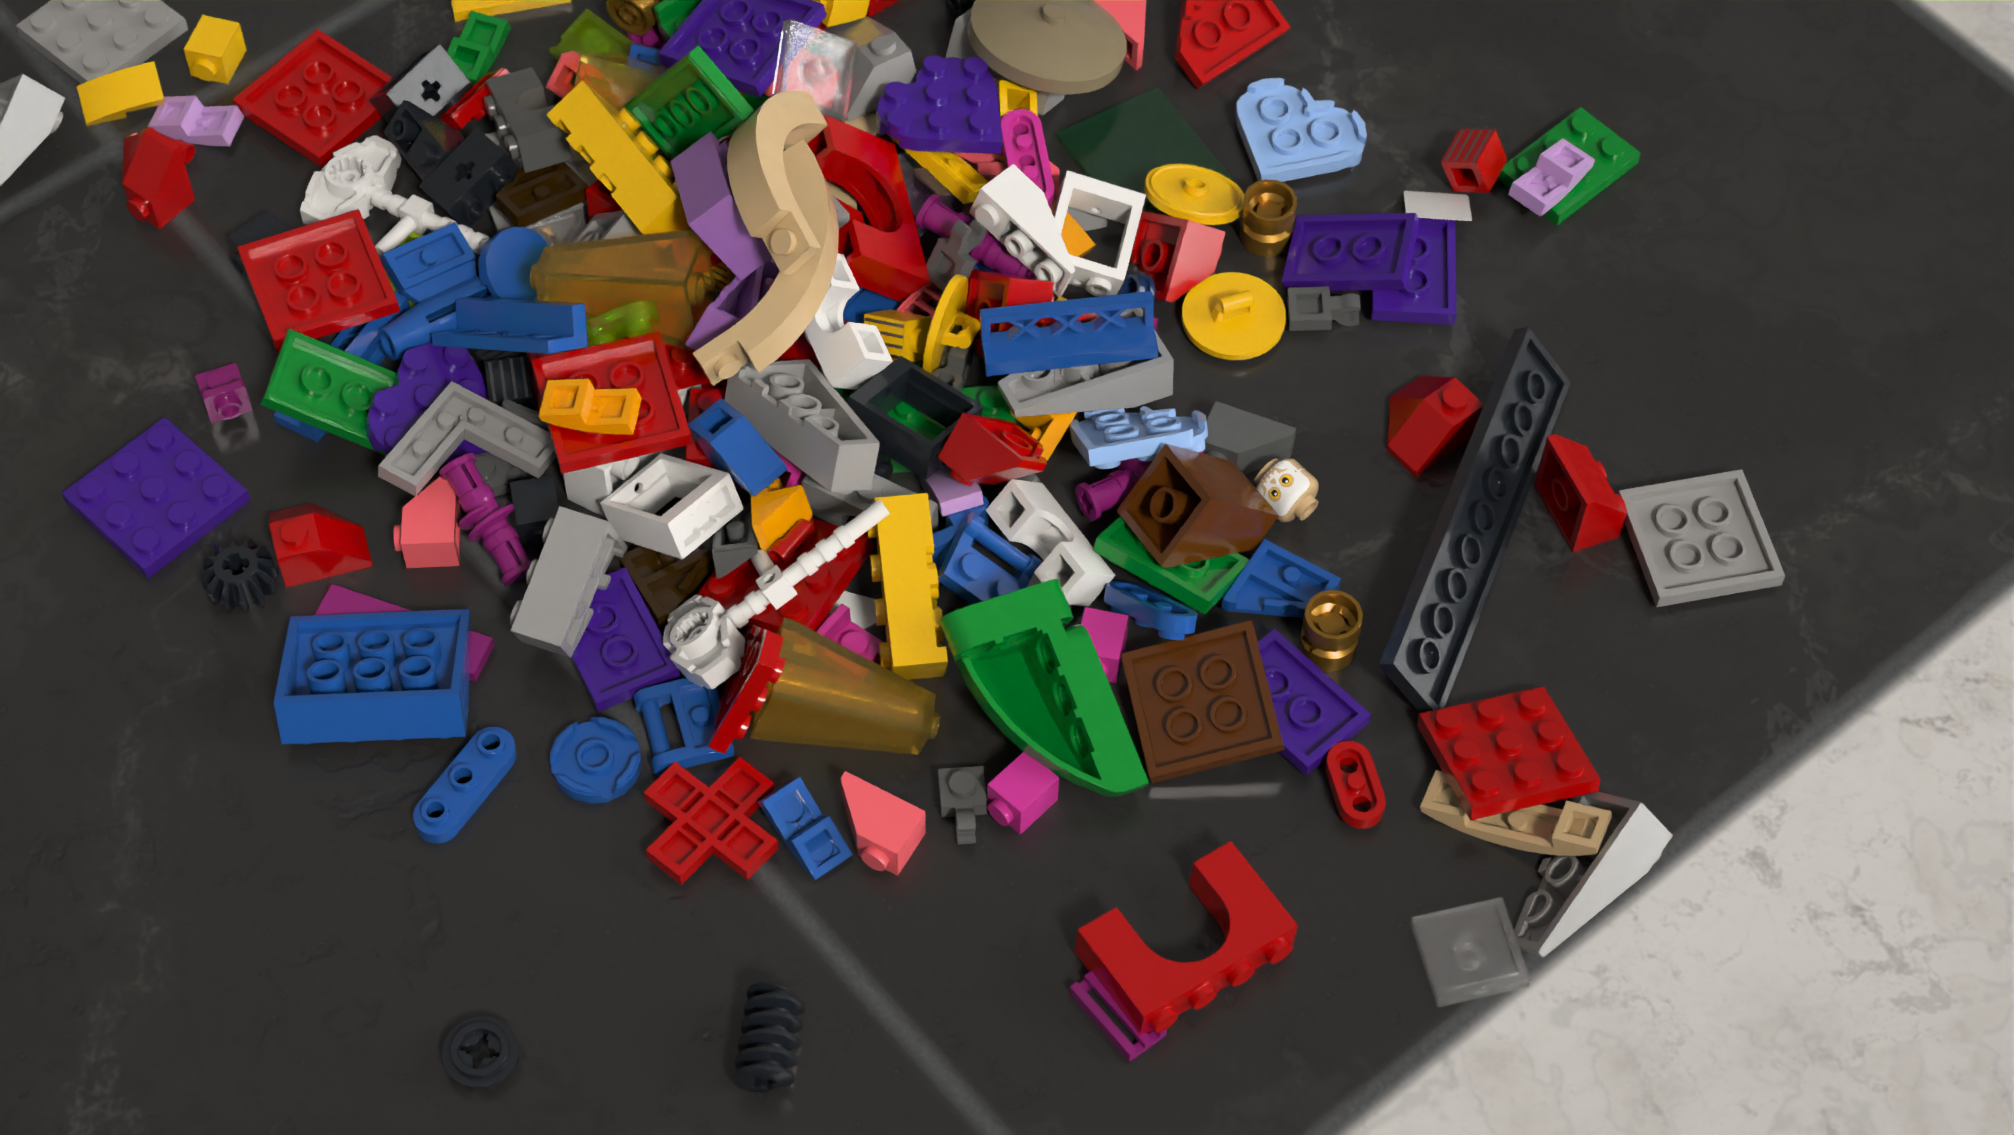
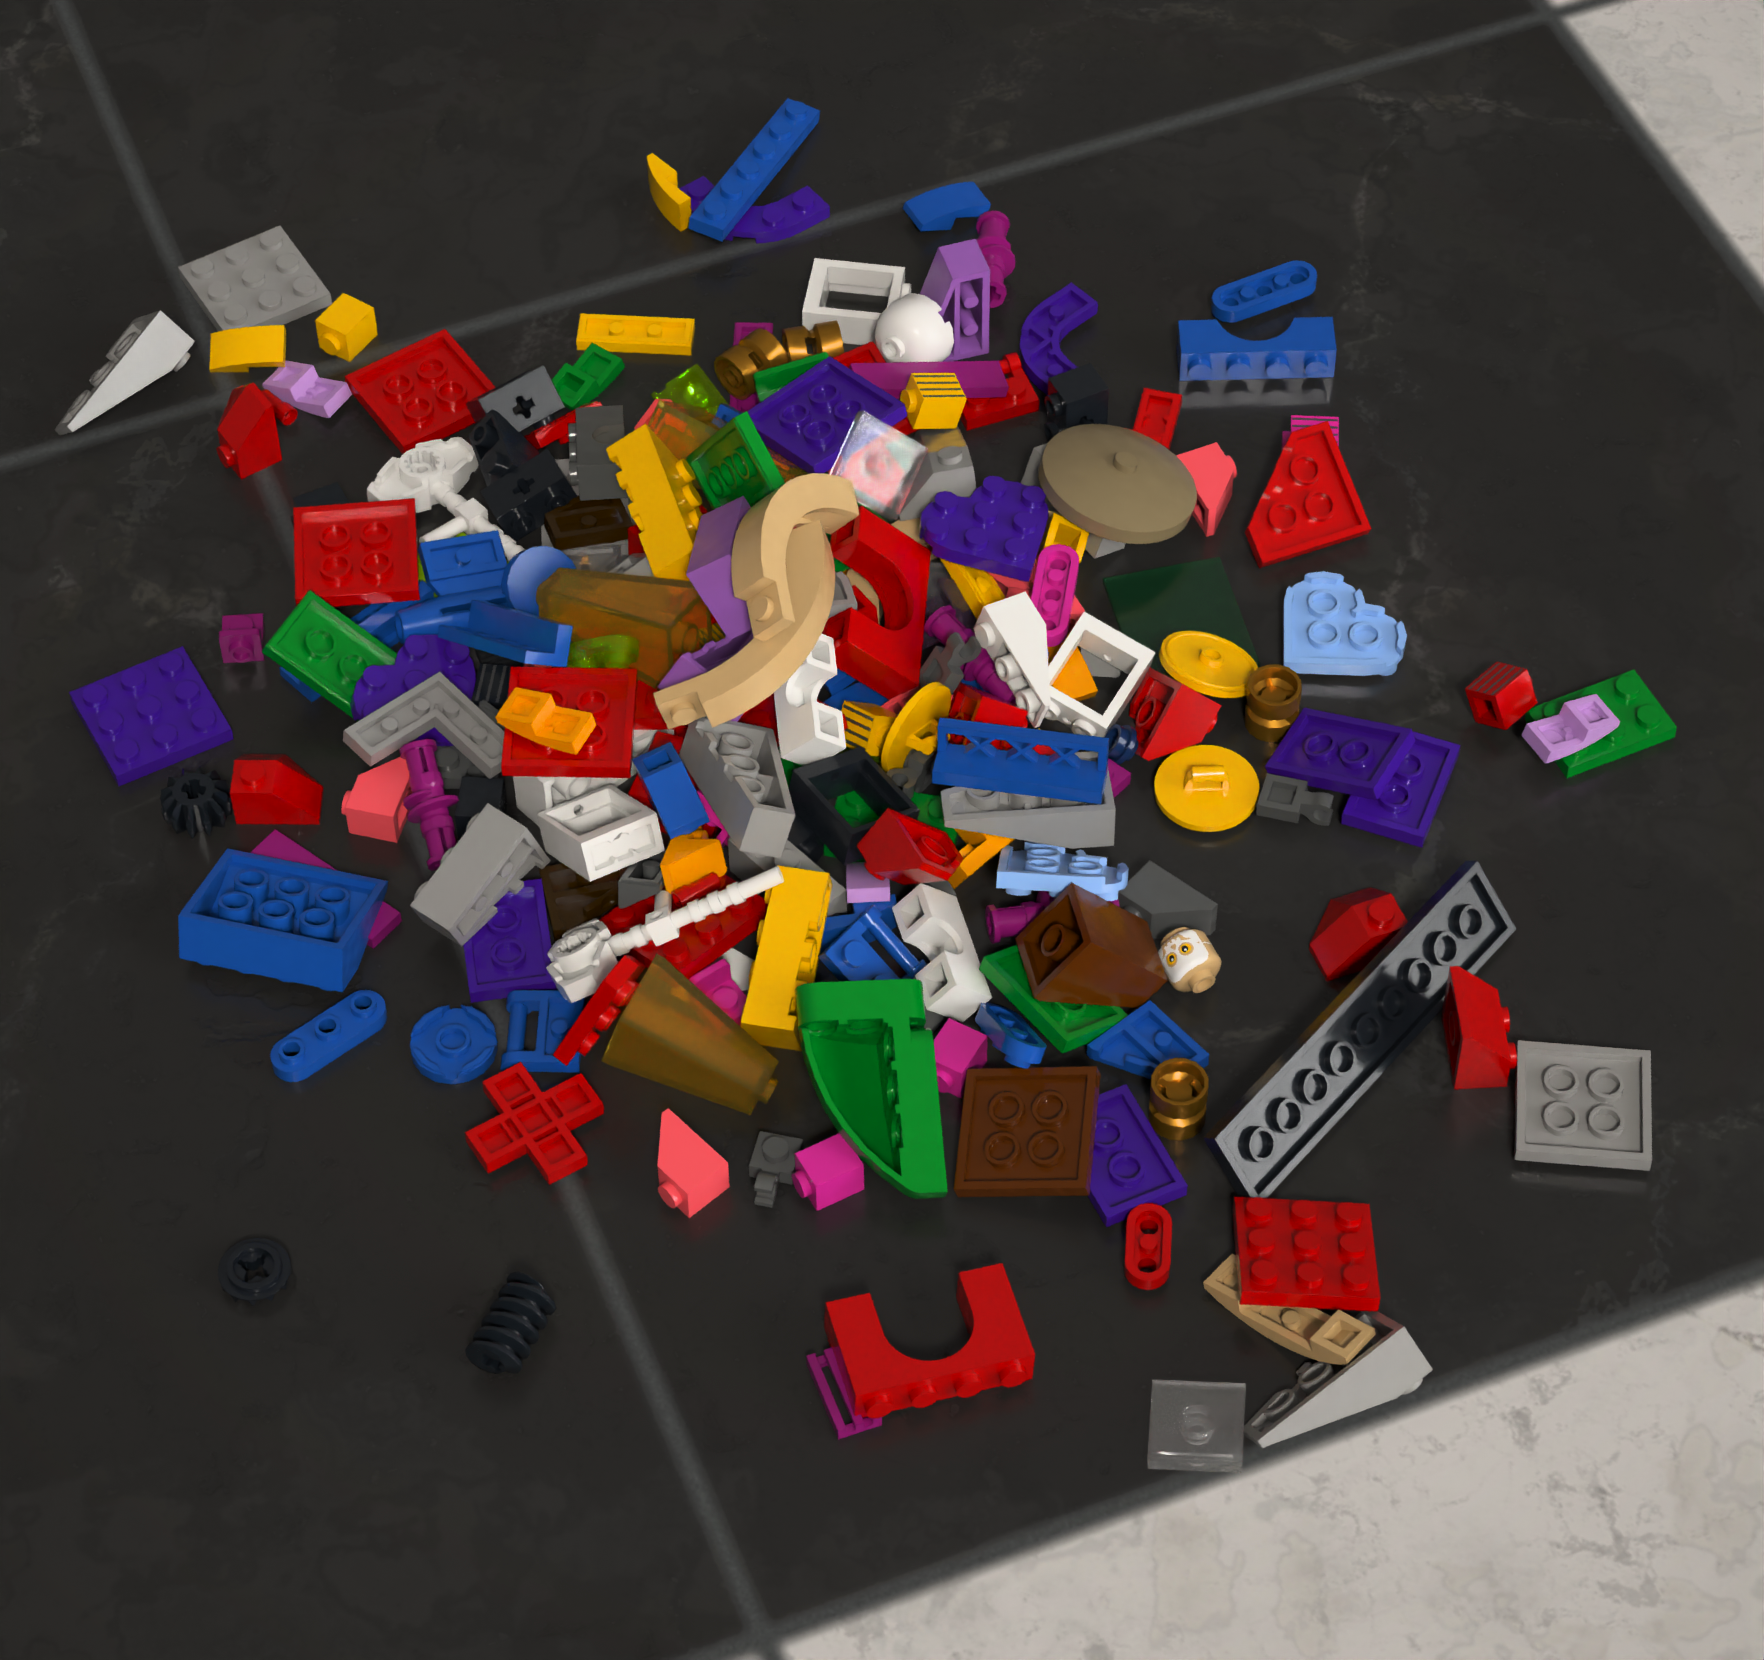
camera: 20 degrees right, 5 degrees down
(804, 829) = (617, 1152): blue slope -> none
(1438, 205) = (1449, 731): white sticker -> none

